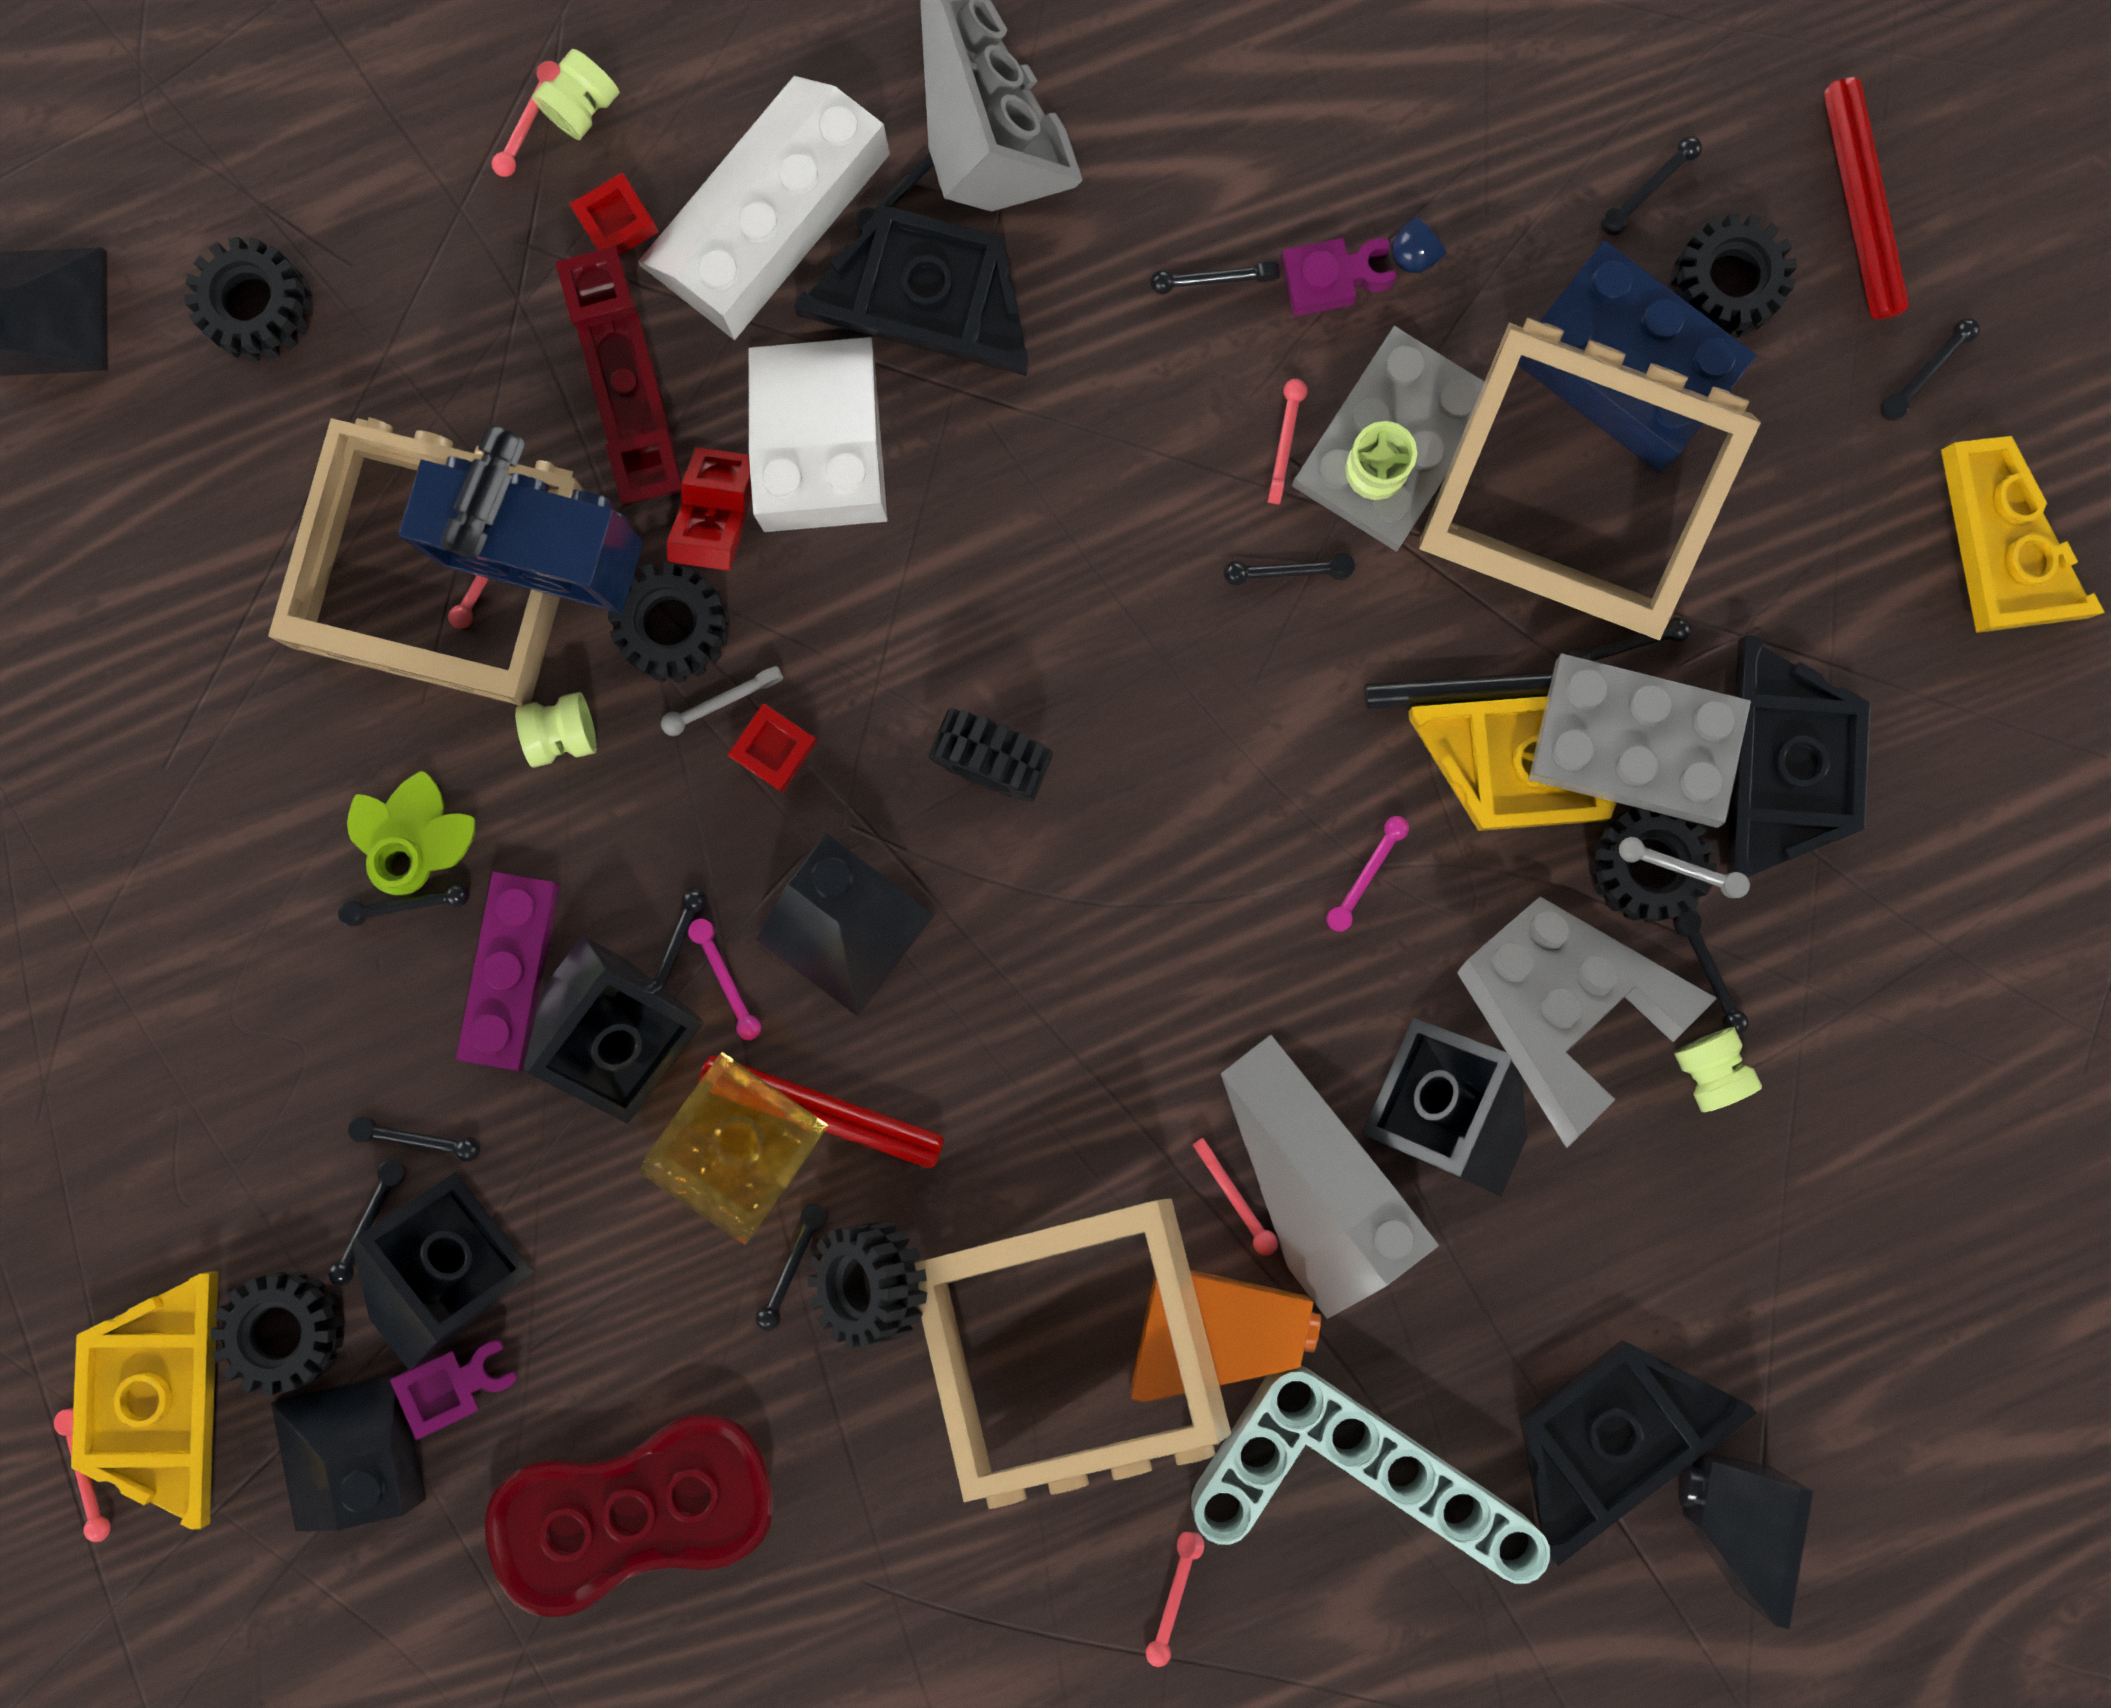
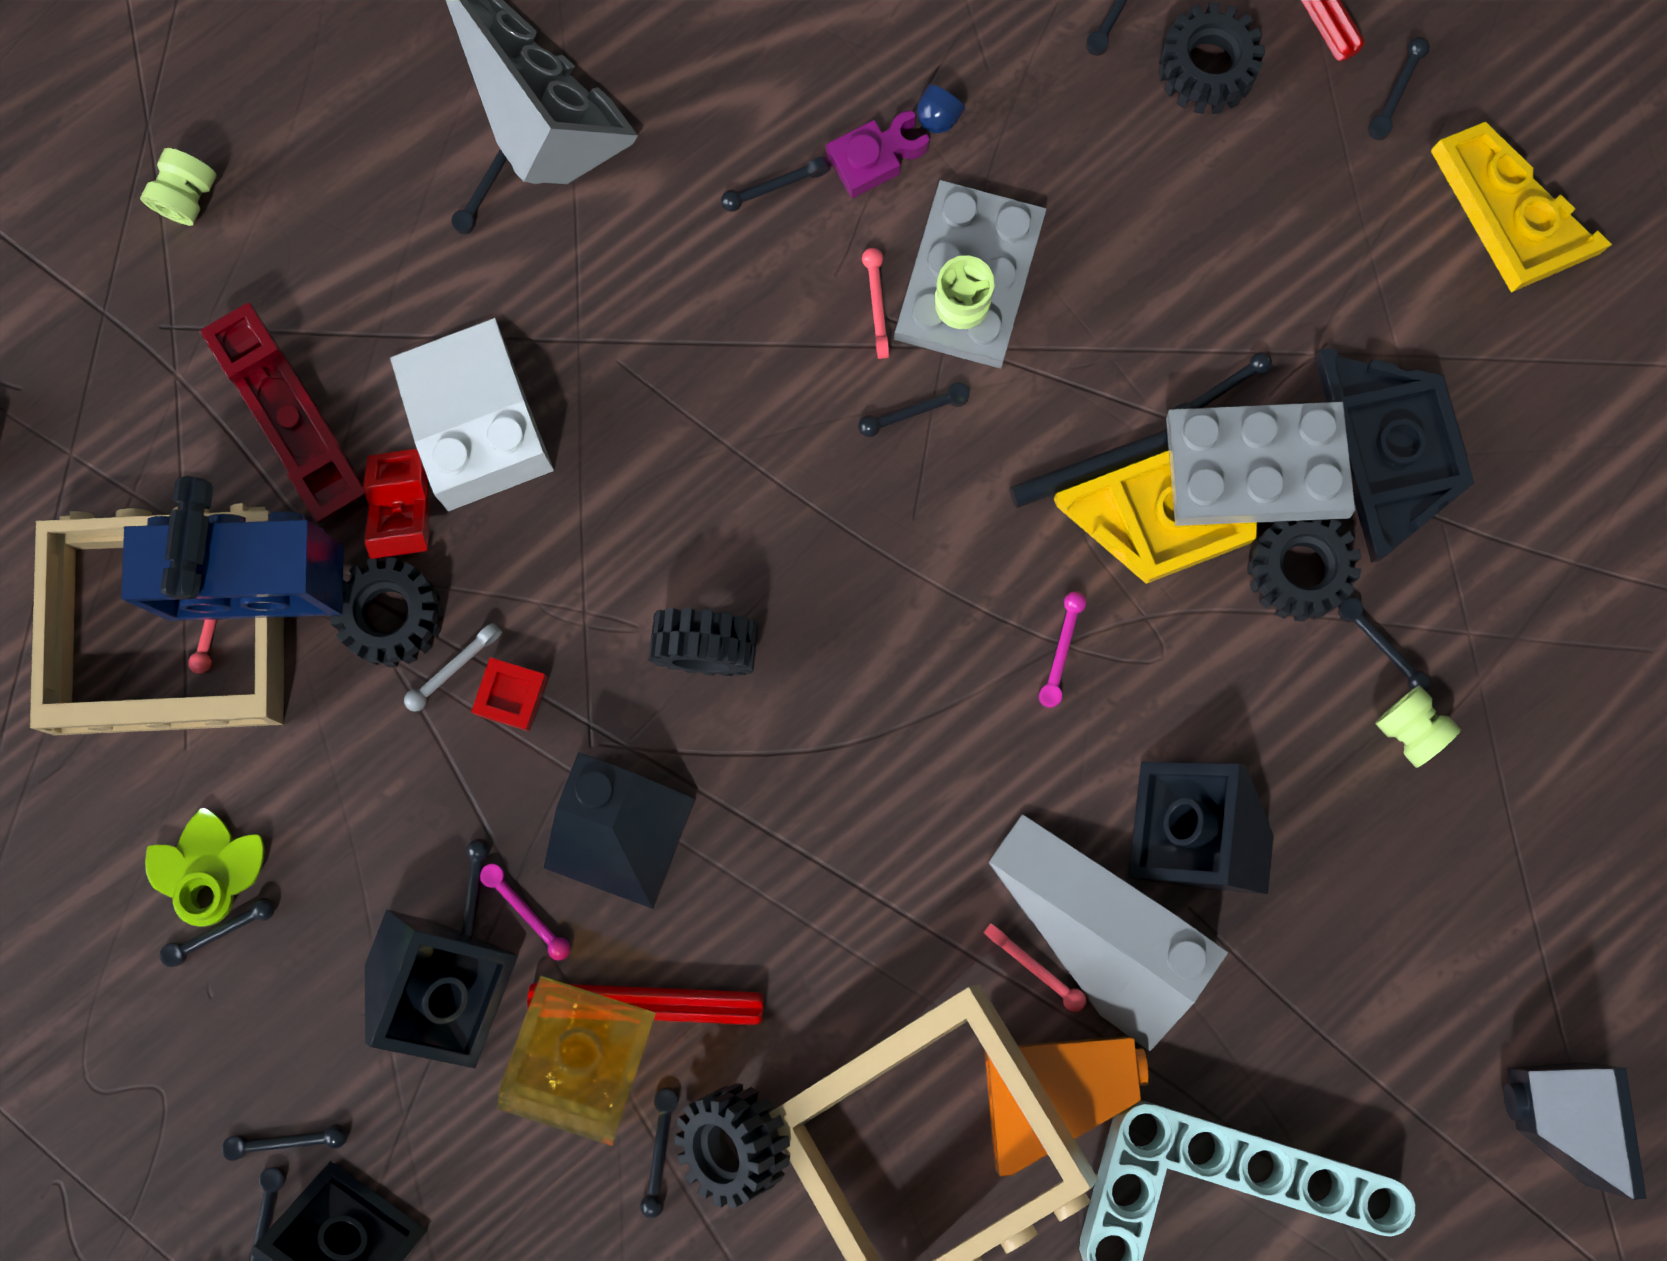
camera: 20 degrees left, 5 degrees down
(504, 162) = (132, 262): coral hinge -> none
(508, 971) = (328, 963): magenta plate -> none
(556, 729) = (312, 735): yellowish green wheel -> none
(614, 215) = (240, 278): red plate -> none
(768, 203) = (372, 231): white slope -> none
(925, 289) = (528, 264): black wing -> none
(1549, 985) = (1250, 696): light grey wing -> none
(1555, 580) = (1140, 351): tan window -> none
(1617, 1440) = (1438, 1079): black wing -> none
(1638, 315) = (1149, 147): dark blue brick -> none
(1731, 885) = (1378, 562): light grey hinge -> none

